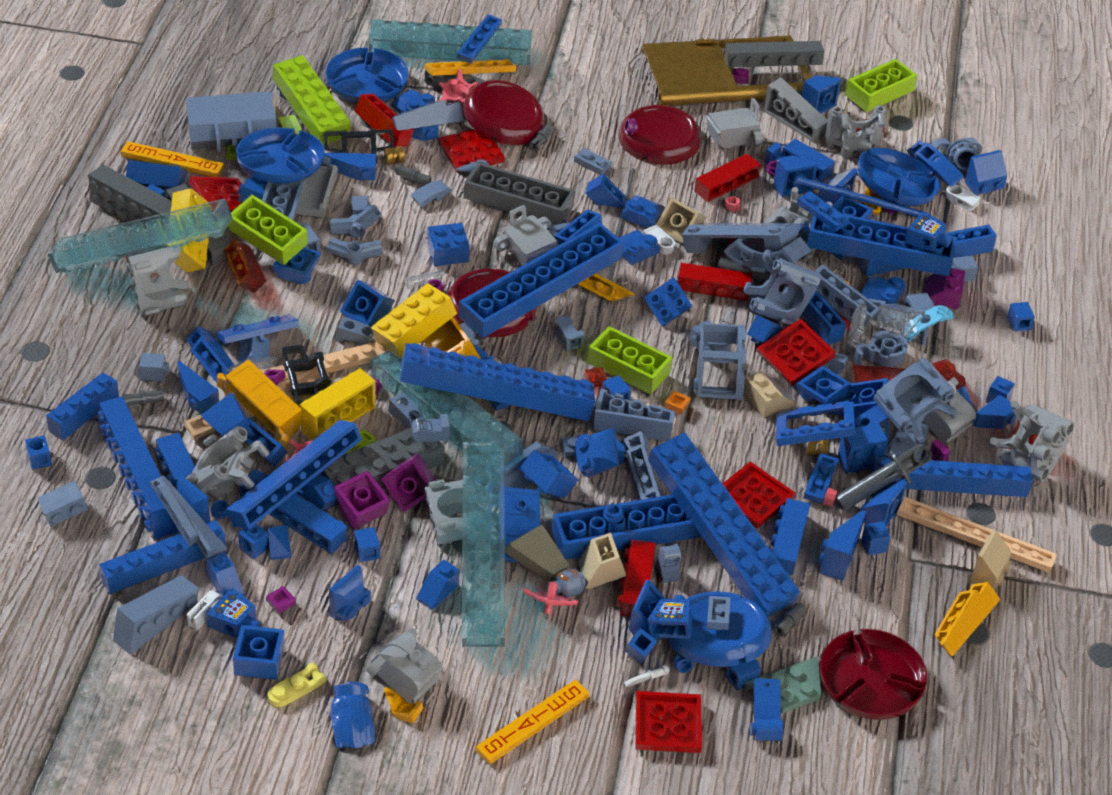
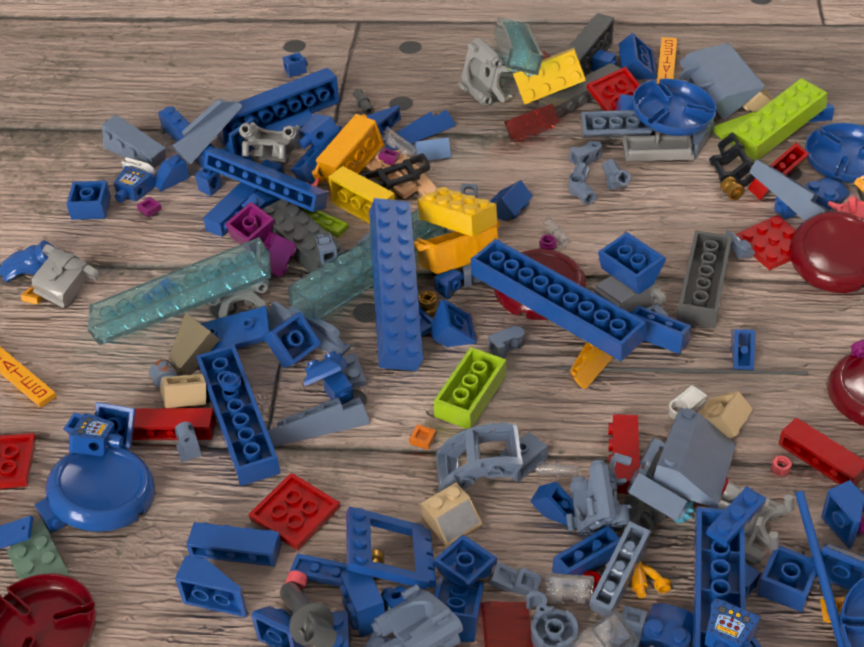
camera: 90 degrees right, 0 degrees up
(62, 503) = (240, 83): sand blue brick -> none
(81, 406) = (348, 73): blue brick -> none
(153, 367) = (398, 97): sand blue brick -> none
(241, 331) = (450, 141): blue container -> none
(268, 229) = (561, 114): lime brick -> none
(279, 542) = (212, 195): blue slope -> none
(296, 686) = (63, 230): light yellow plate -> none
(299, 267) = (545, 150): blue slope -> none
(348, 595) = (145, 237): blue slope -> none
(355, 165) = (705, 169): blue slope -> none
(359, 204) = (640, 178): sand blue window -> none
(367, 544) = (209, 243): blue brick -> none
(413, 175) = (709, 206): dark grey pin -> none
(430, 191) = (688, 220): sand blue slope -> none
(448, 244) = (603, 233): blue brick -> none
(520, 217) = (631, 262): none -> blue slope
(541, 137) = (819, 289): dark grey pin -> none
(543, 363) = (452, 326): none -> blue slope
(550, 598) = (142, 359): coral piece -> none
(592, 161) = (800, 336): sand blue plate -> none
(595, 376) = (445, 368): clear red plate -> none
(617, 385) = (426, 385): blue brick -> none
(632, 417) = (388, 393): sand blue wedge -> none
(639, 246) = (664, 383): blue slope -> none
(642, 211) = (728, 379): blue slope -> none
(650, 675) = (59, 446): white piece -> none
(668, 301) = (583, 408): blue plate -> none
(718, 613) = (103, 474): sand blue plate -> none
(723, 525) = (216, 468): blue brick -> none
(789, 619) = (121, 551): dark grey pin -> none
(796, 352) = (521, 535): red plate -> none
(875, 538) = (232, 624): blue brick -> none

